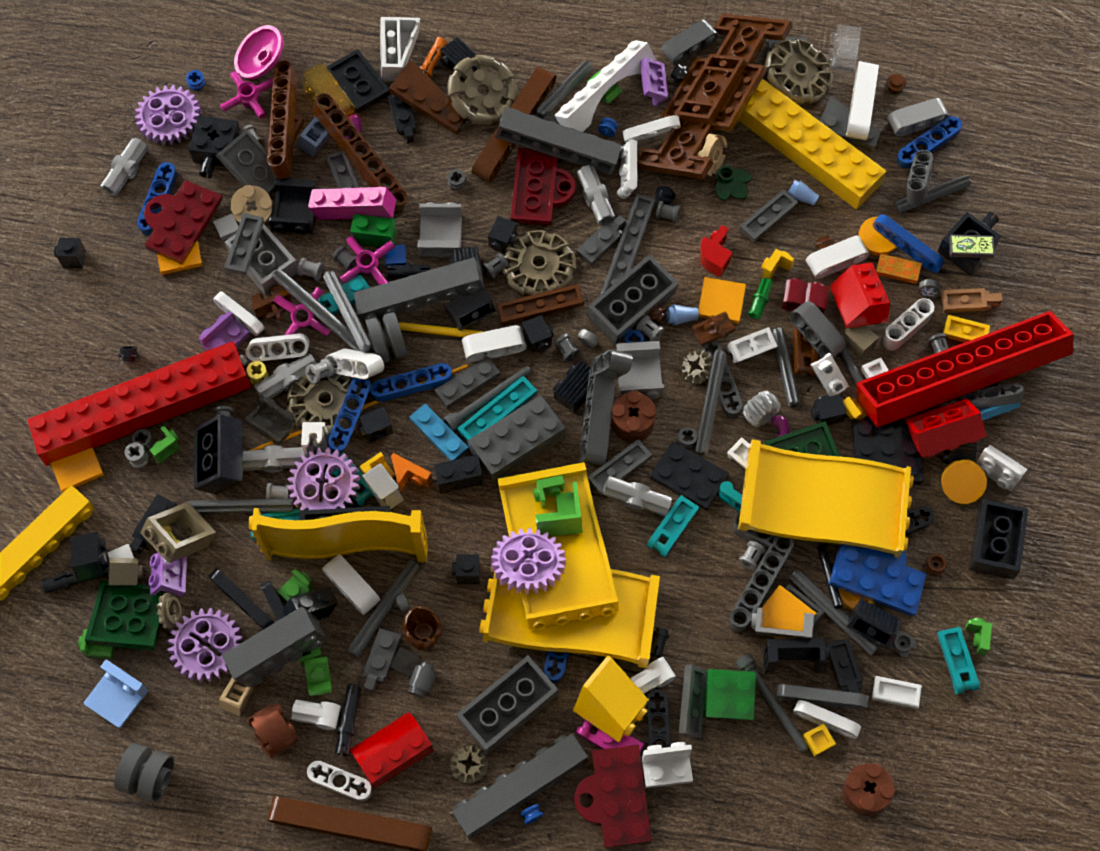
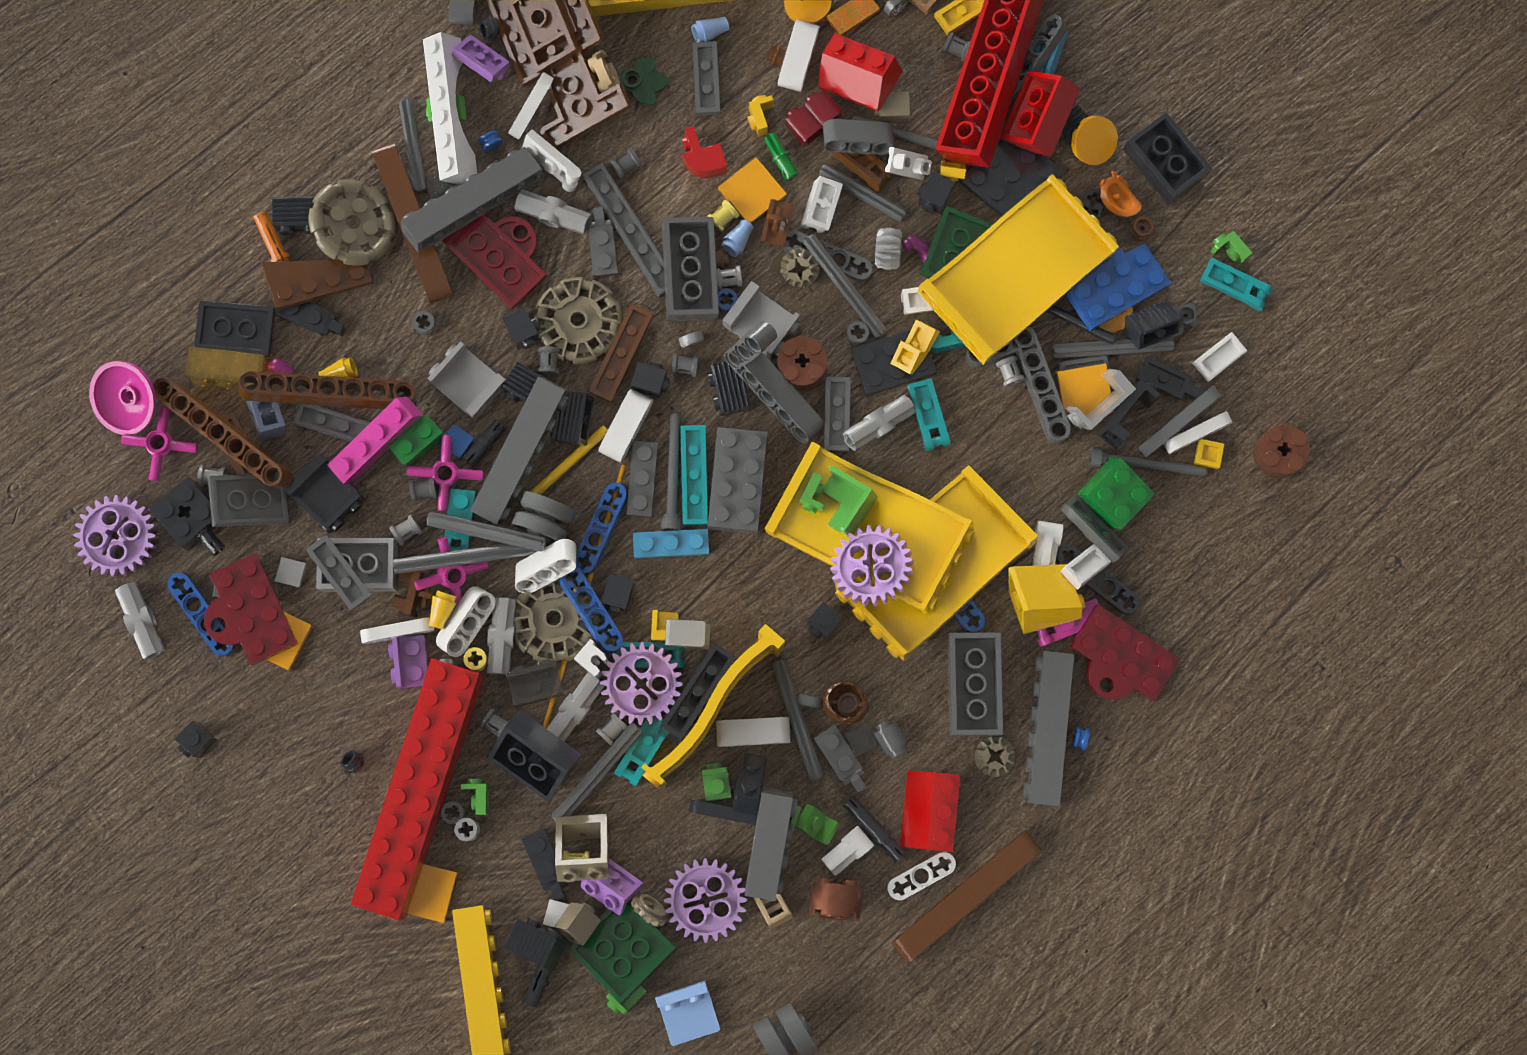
camera: 55 degrees left, 15 degrees up
(195, 85) = (95, 472): blue bush -> none
(240, 599) = (689, 838): black beam -> none
(250, 194) = (279, 525): tan plate -> none
(275, 325) = (441, 609): none -> yellow cone
(319, 370) = (524, 602): light grey bush -> none
(386, 156) = (341, 368): none -> yellow cone
(396, 44) = (229, 263): white wedge -> none
(405, 469) = (682, 602): orange slope -> none
(458, 474) = (728, 558): black brick -> none
(658, 641) = (1018, 507): black pin -> none
(658, 714) = (1085, 566): none -> white tile
(664, 194) = (605, 150): black plate -> none
(667, 765) = (1136, 597): white bracket -> none
(687, 294) = (724, 215): none -> light yellow bush
(703, 478) = (915, 349): none -> yellow slope
(874, 368) = (932, 121): white plate -> none
(912, 316) = (914, 43): white beam -> none
(941, 529) = (1118, 197): none -> orange hat
(1001, 468) = (1107, 98): white bracket -> none

